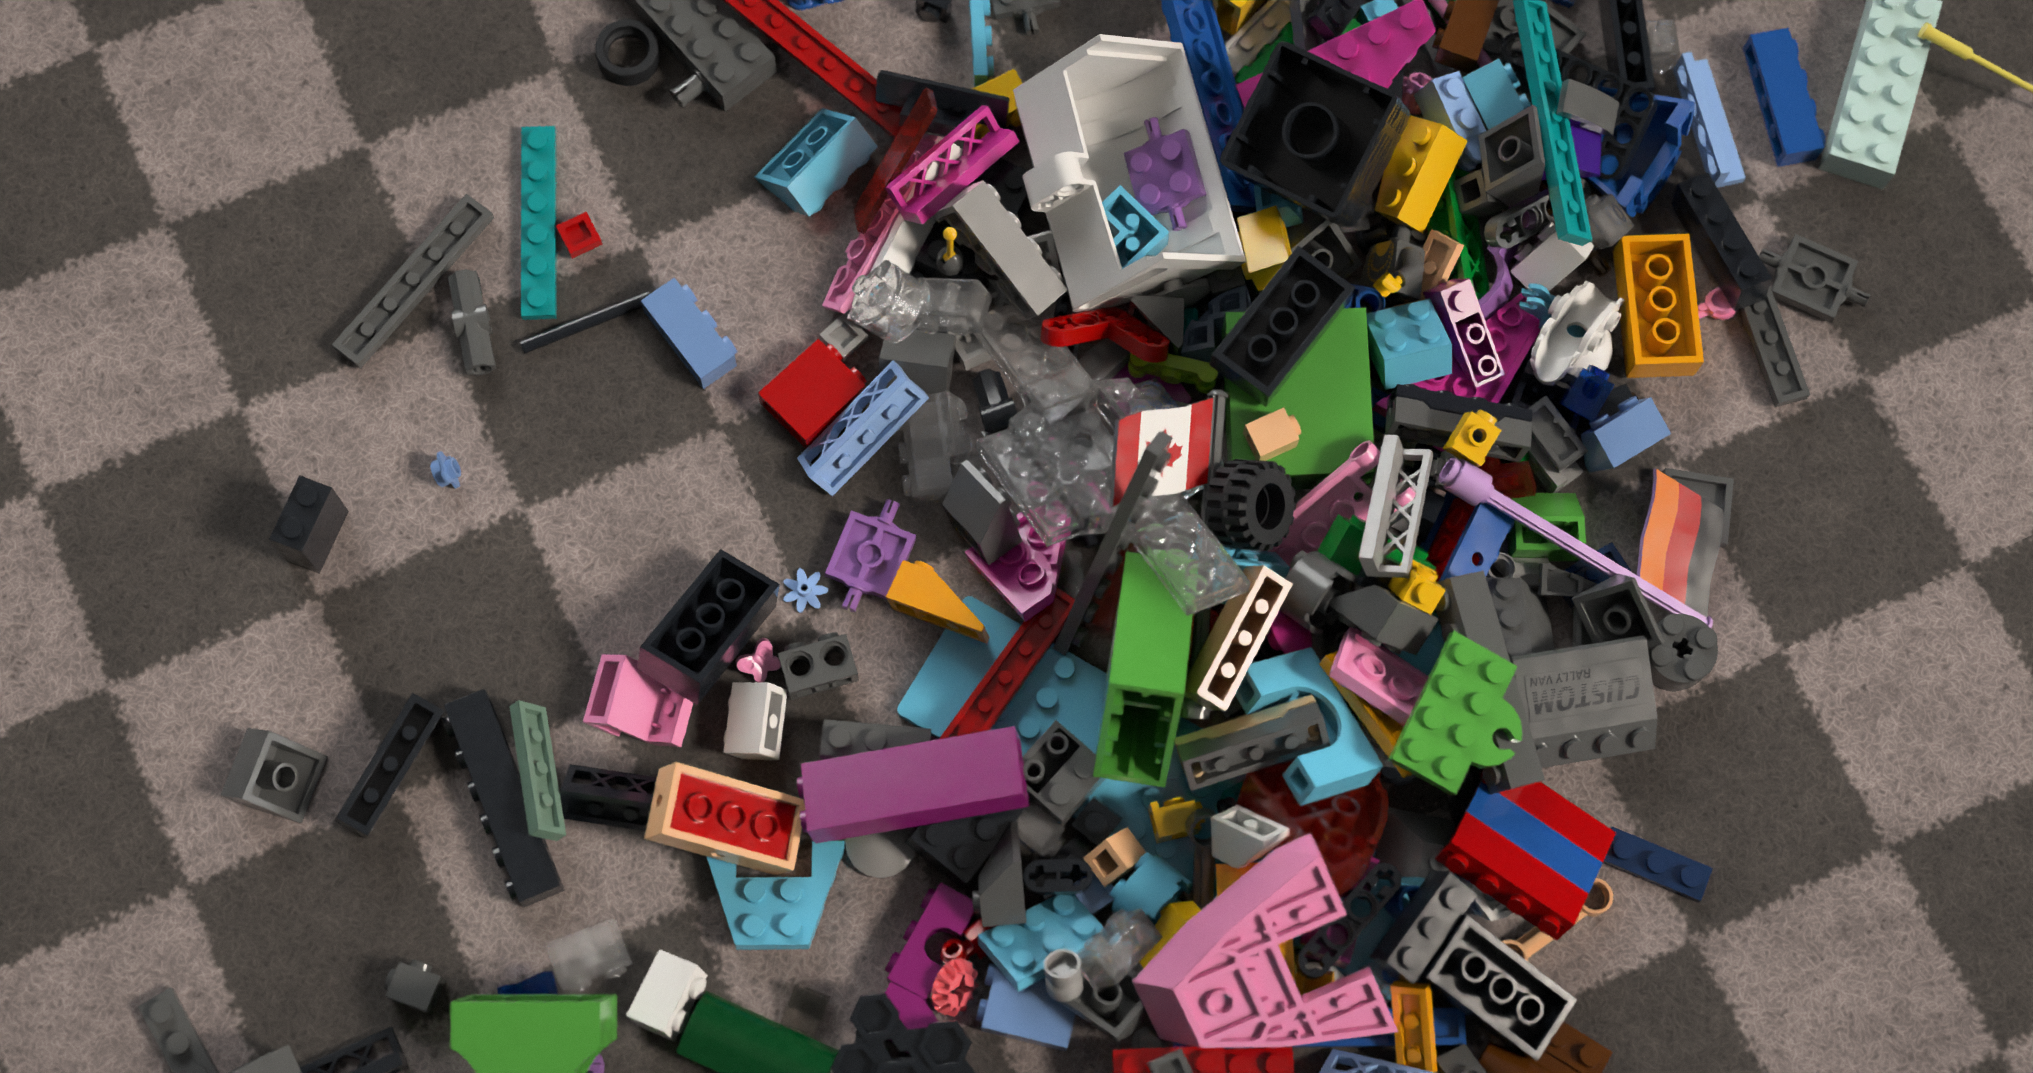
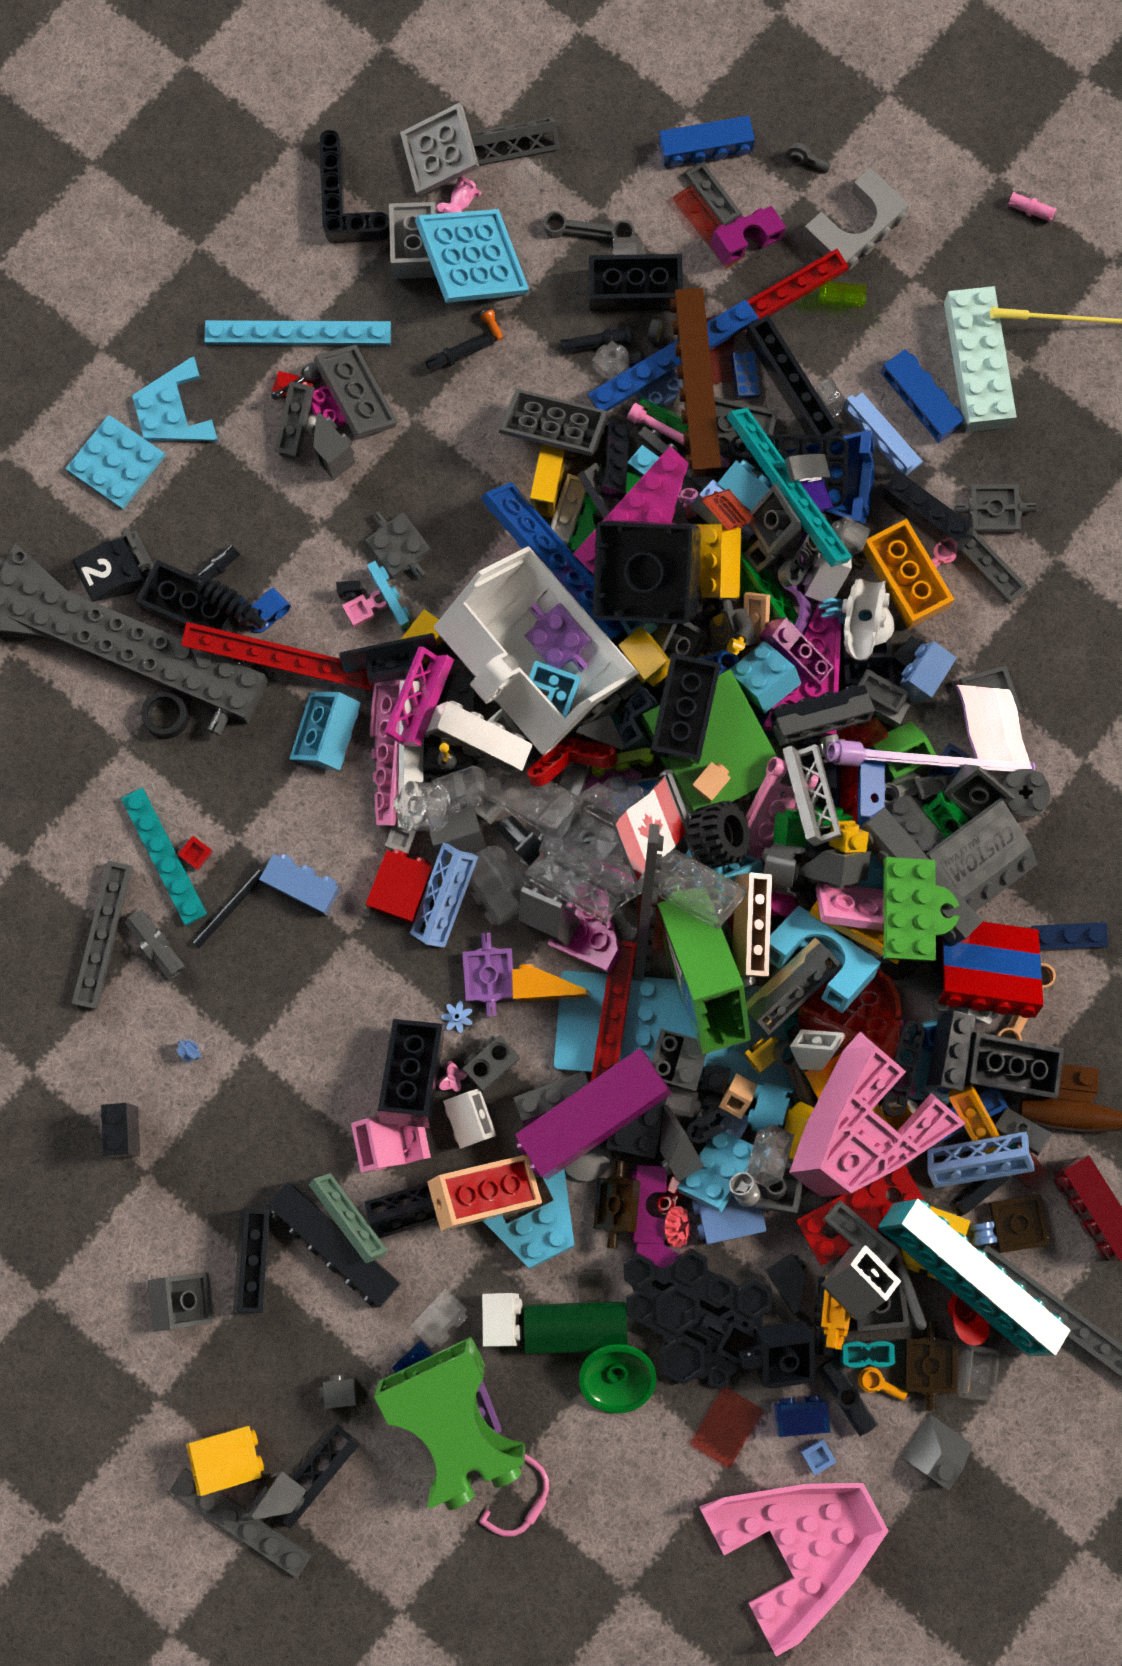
camera: 20 degrees left, 5 degrees up
(226, 999) = (224, 1460): none -> yellow brick
(889, 920) = (616, 1204): none -> dark brown plate
(895, 160) = (379, 709): clear red piece -> none
(935, 36) = (361, 610): none -> bright pink plate
(1460, 112) = (728, 509): none -> clear red piece
(1461, 440) = (830, 726): yellow brick -> none
(1560, 623) = (945, 814): none -> green piece
(1587, 392) = (892, 656): clear blue brick -> none

